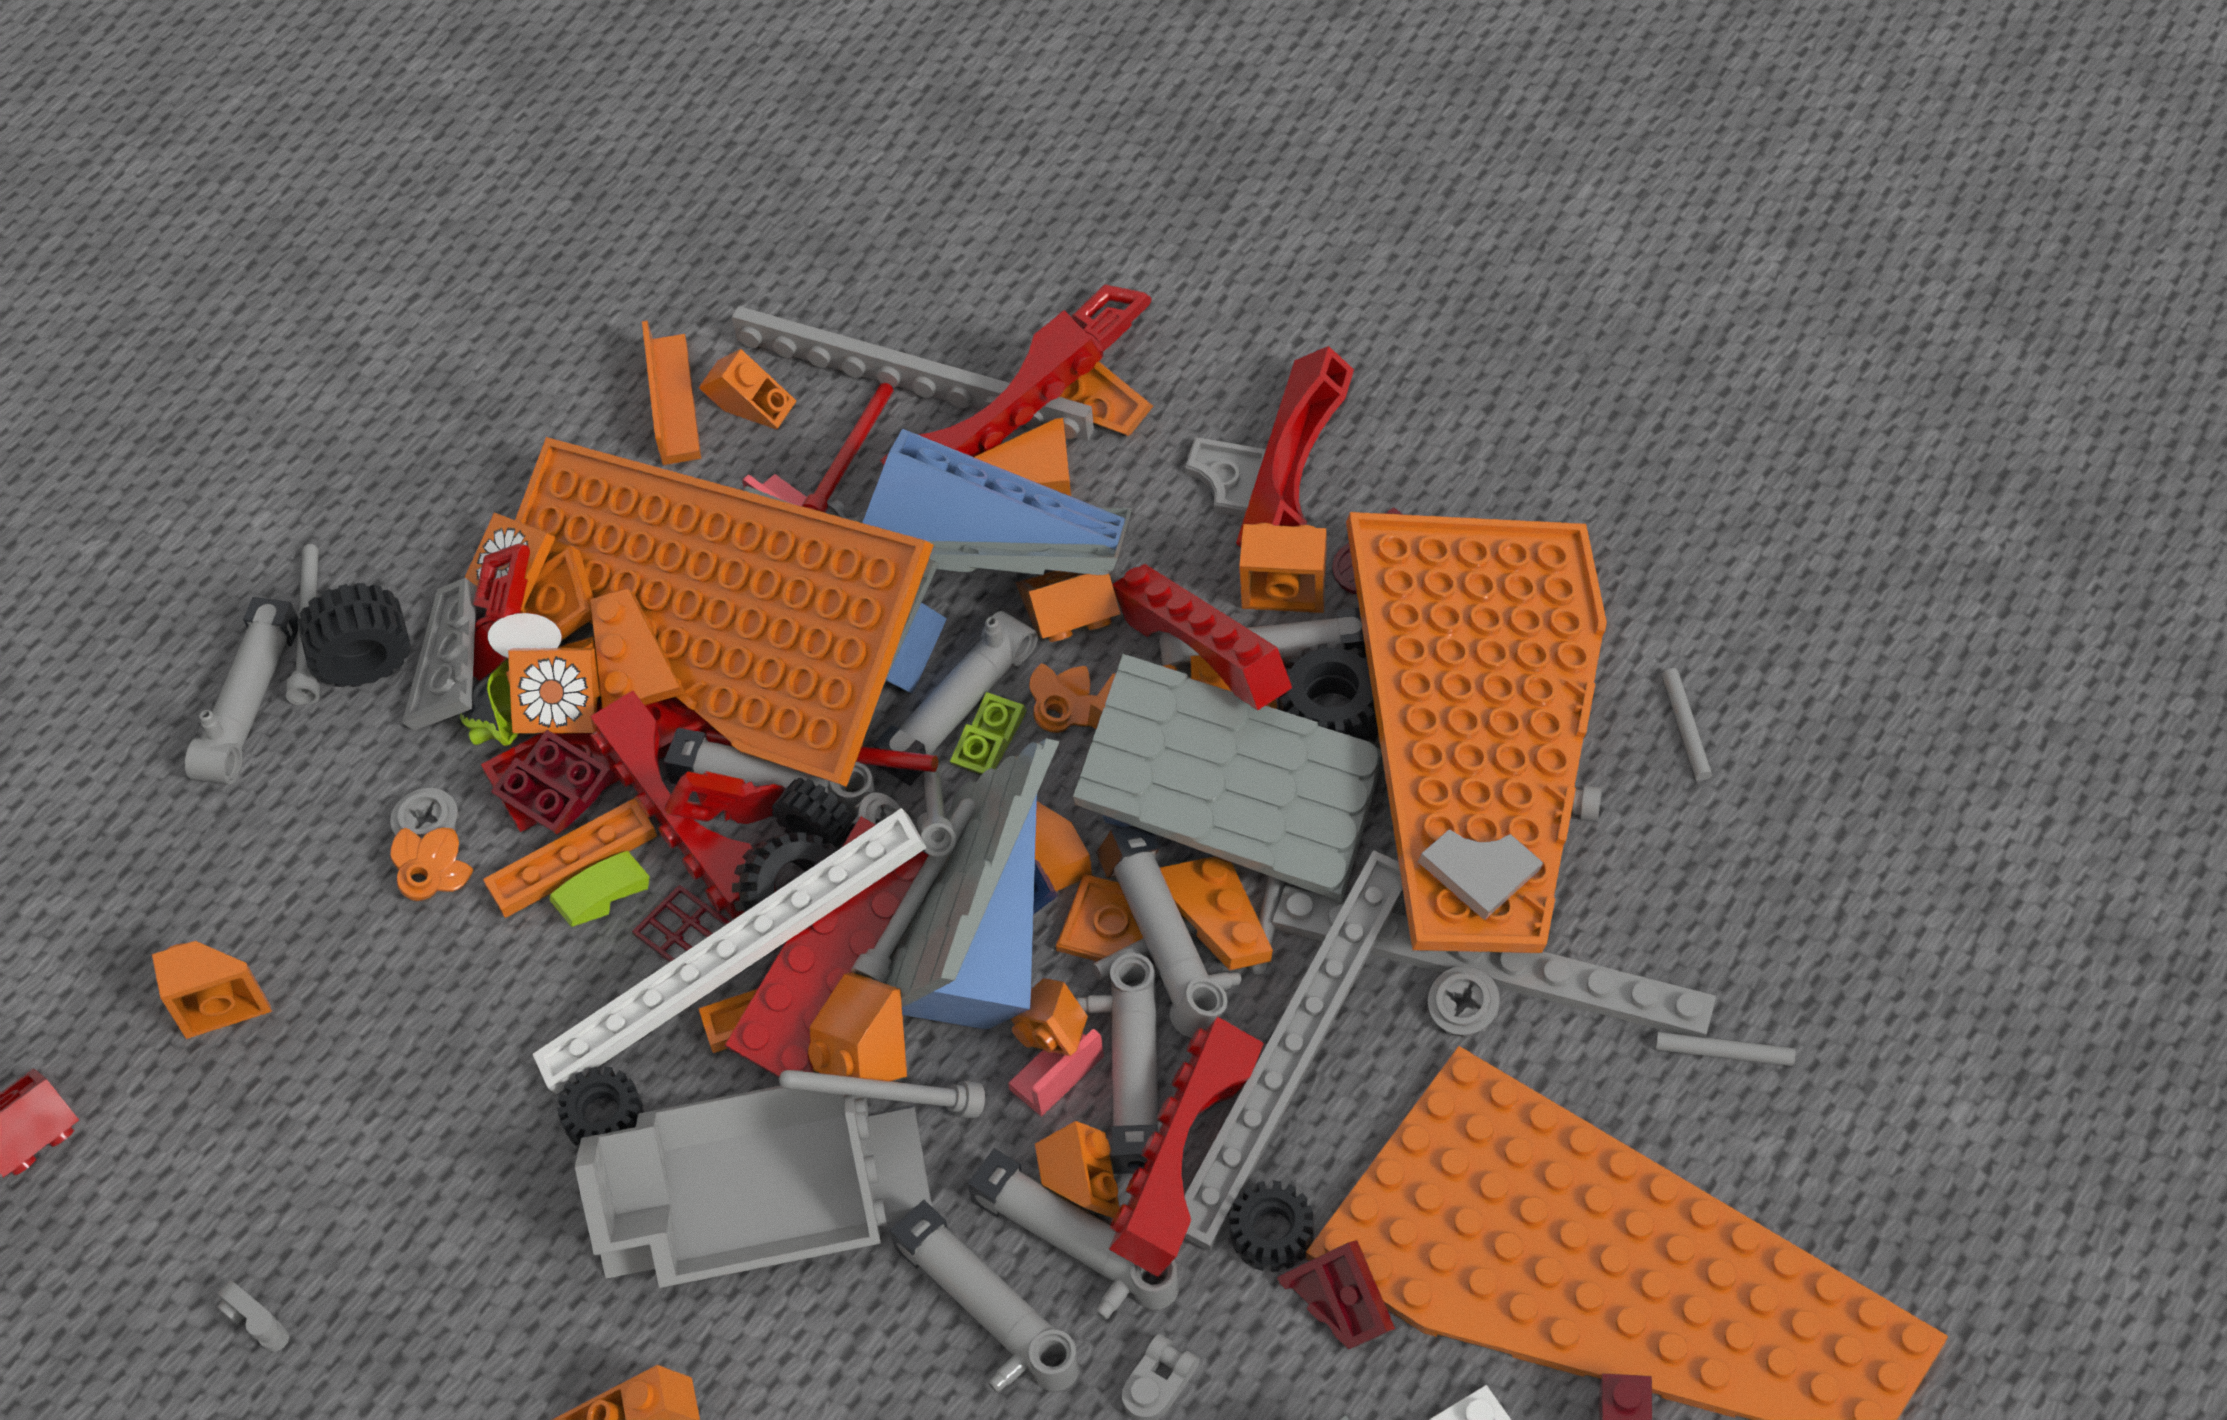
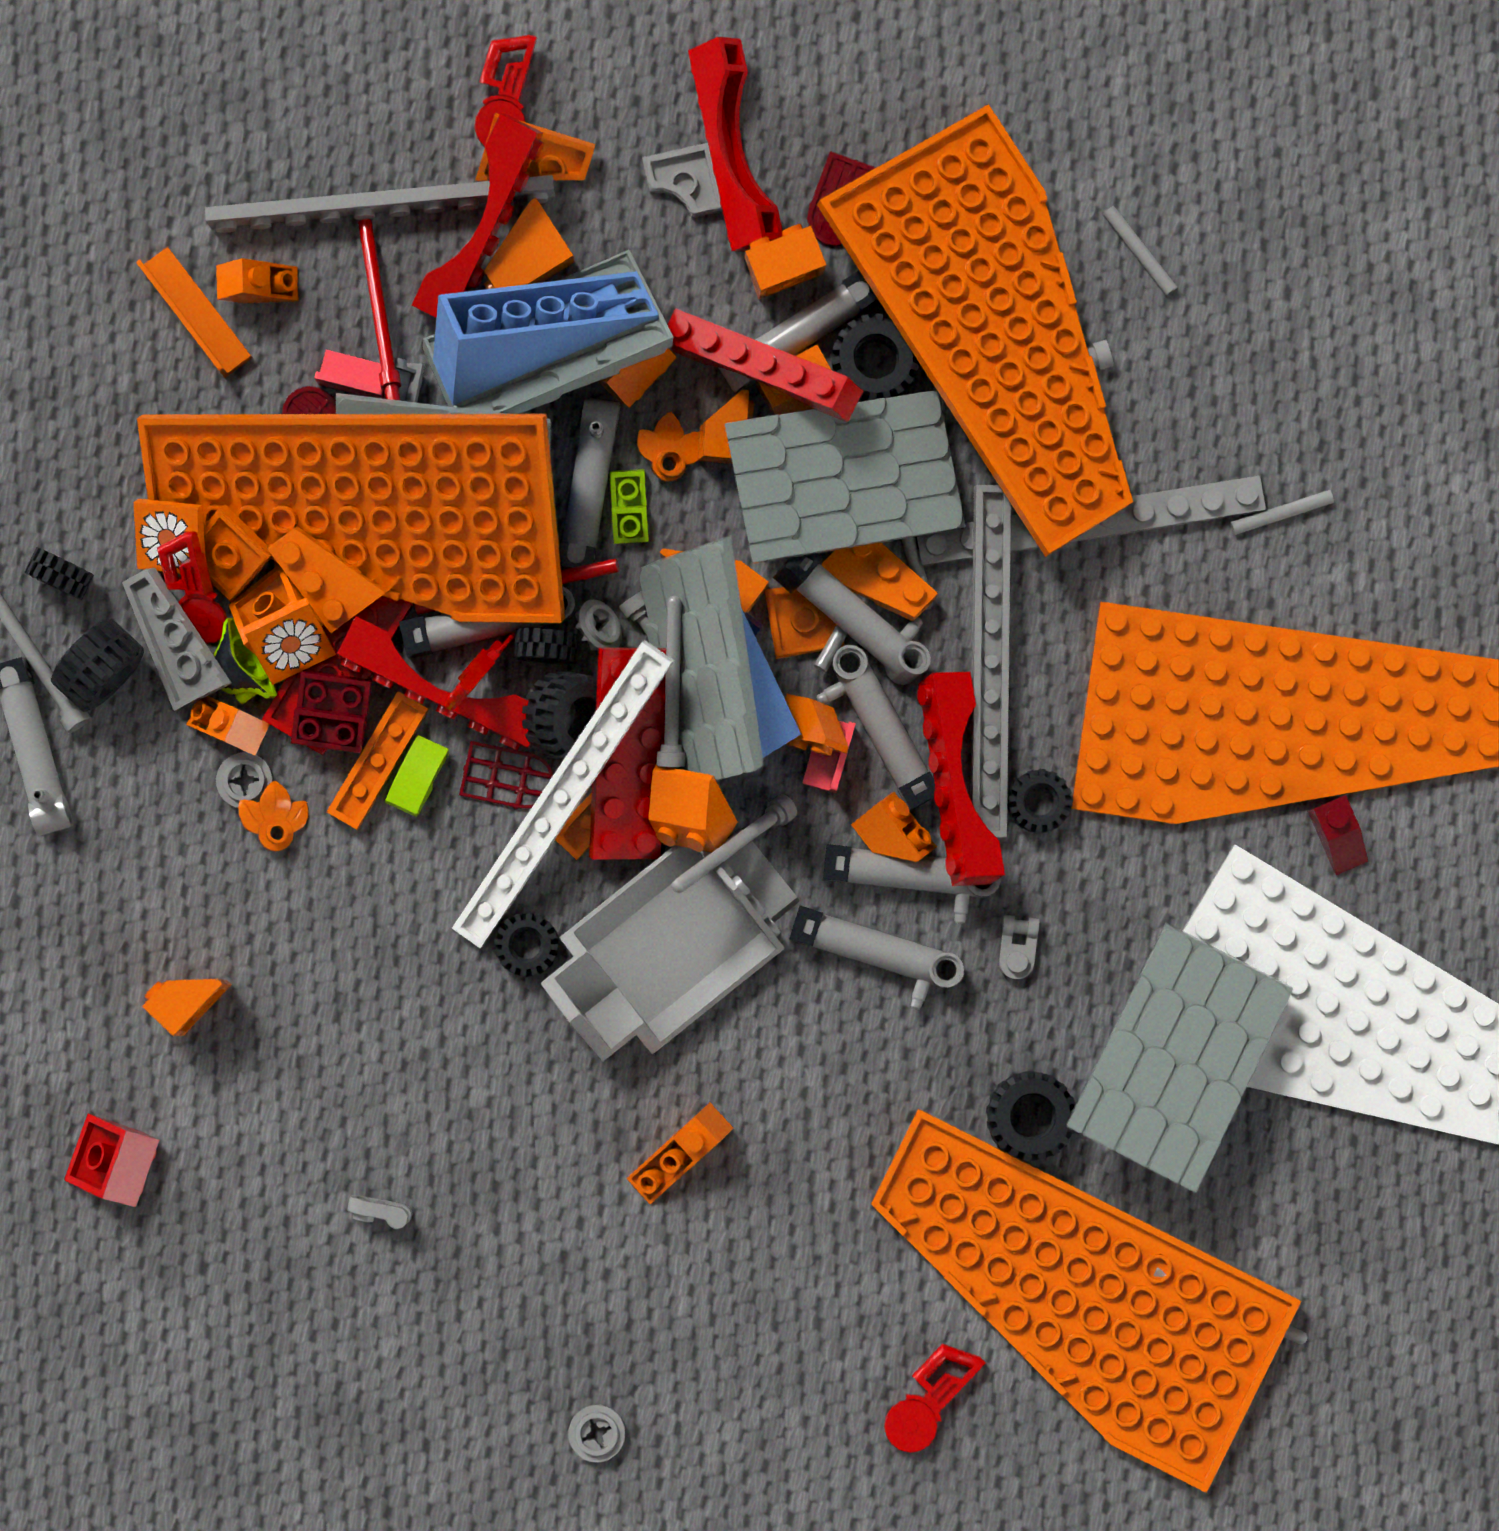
camera: 35 degrees left, 30 degrees up
(381, 548) = (59, 573): none -> black tyre
(445, 755) = (228, 724): none -> orange slope
(523, 631) = (232, 602): white sticker -> none
(937, 831) = (670, 640): light grey piece -> none
(1342, 1294) = (1112, 830): dark red wing -> none
(1457, 983) = (1100, 576): light grey gear -> none
(1480, 871) = (1065, 472): light grey tile -> none

